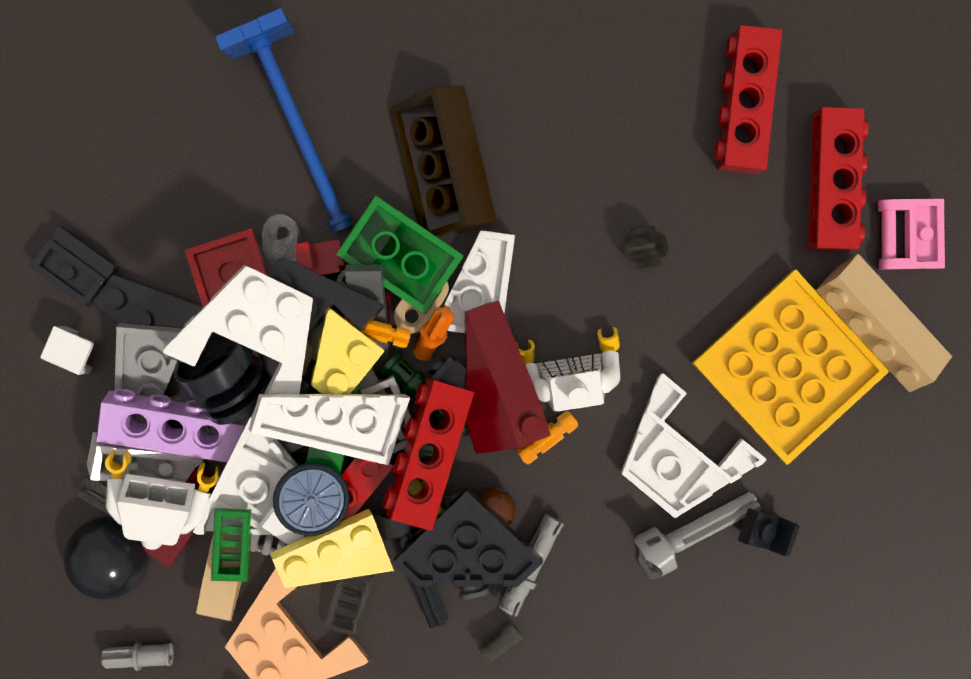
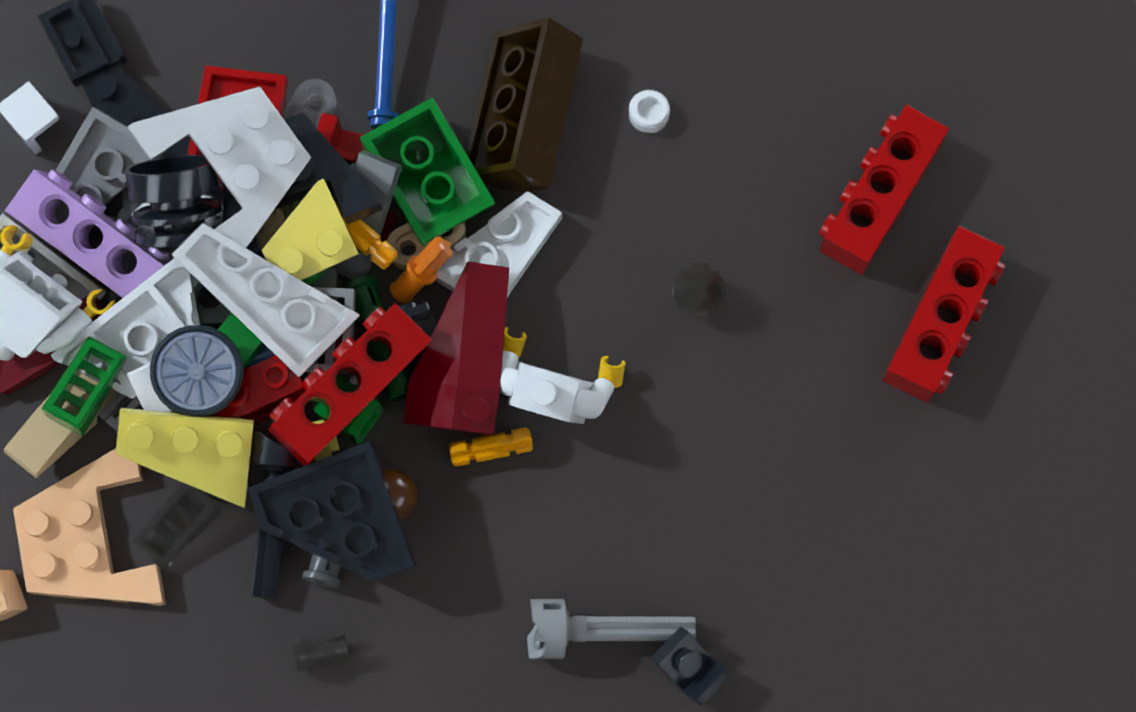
camera: 25 degrees right, 15 degrees down
(540, 118) = (649, 111): none -> white tile
(542, 543) = (387, 590): light grey pin -> none
(670, 466) = (614, 542): white wing -> none
(790, 367) = (802, 495): yellow plate -> none
(884, 323) = (929, 490): tan brick -> none
(922, 234) = (1018, 417): bright pink plate -> none

